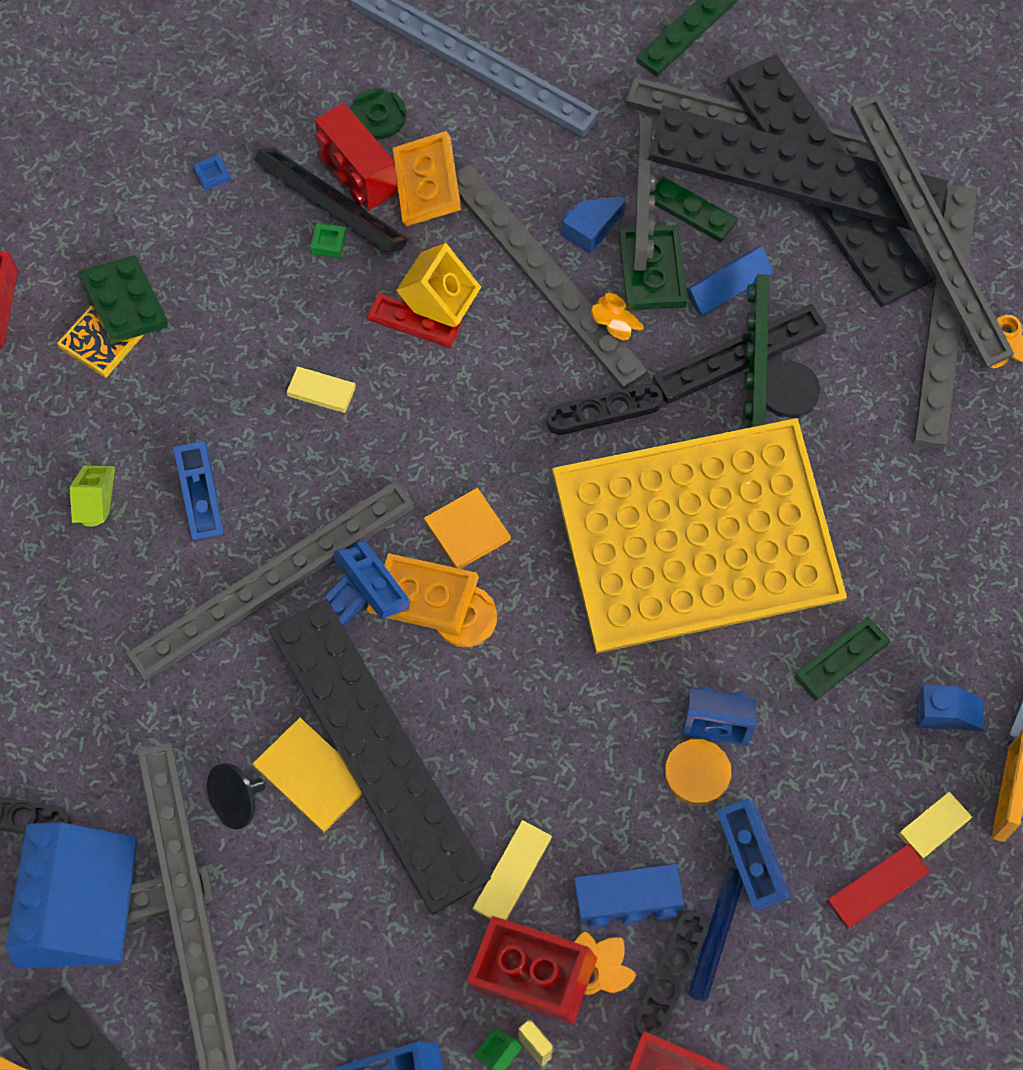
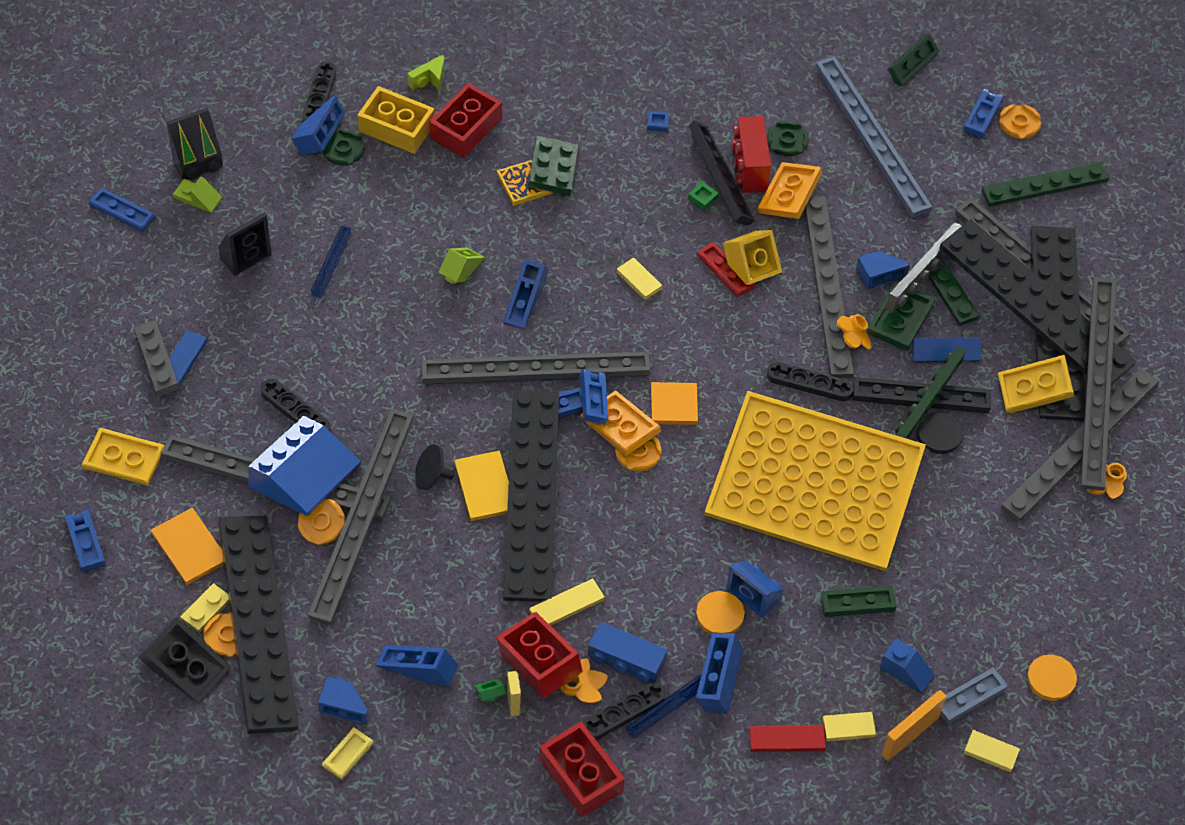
camera: 30 degrees right, 10 degrees down
(146, 954) = (323, 523): none -> light orange tile
(857, 269) = (1036, 384): none -> yellow tile

